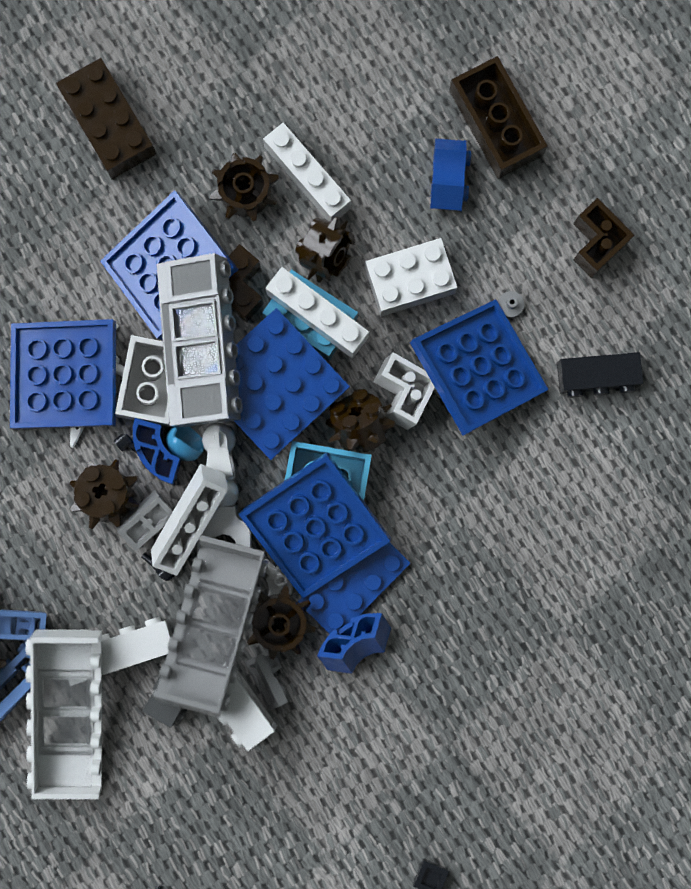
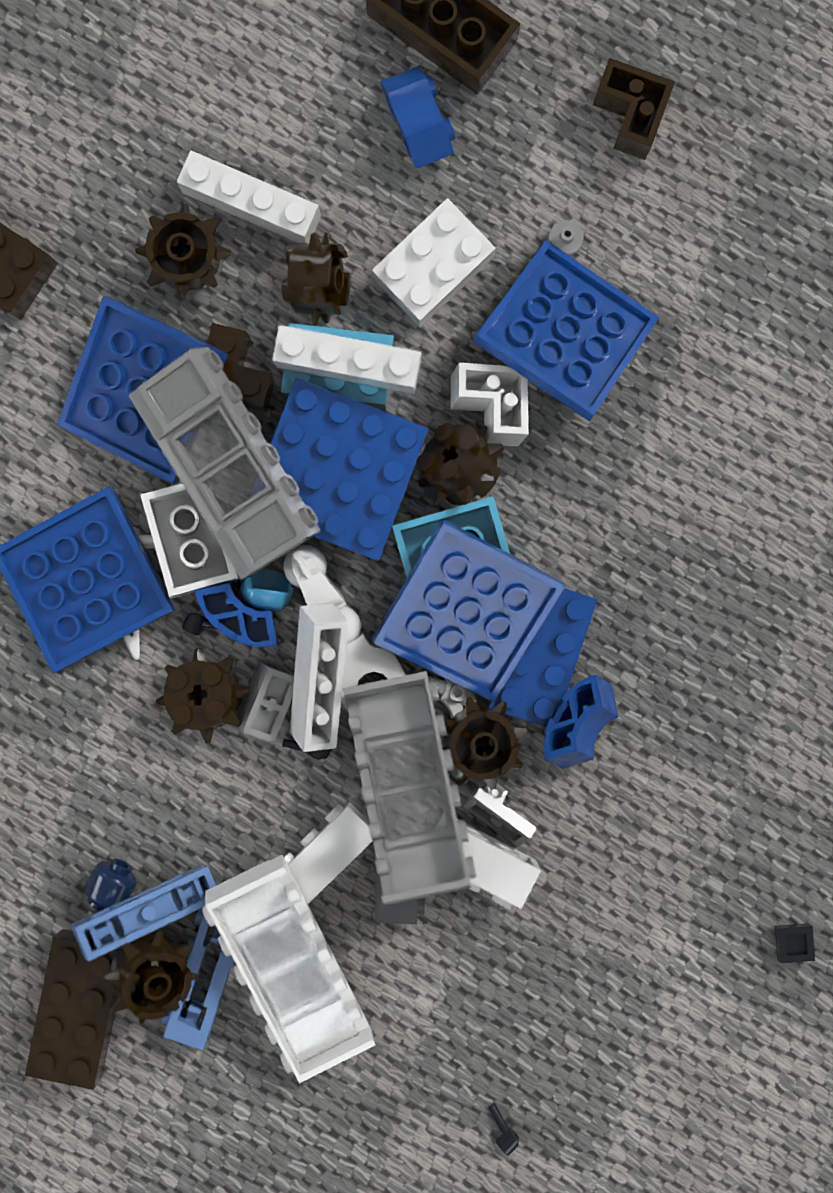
camera: 25 degrees left, 5 degrees up
(600, 374) = (711, 269): black brick -> none

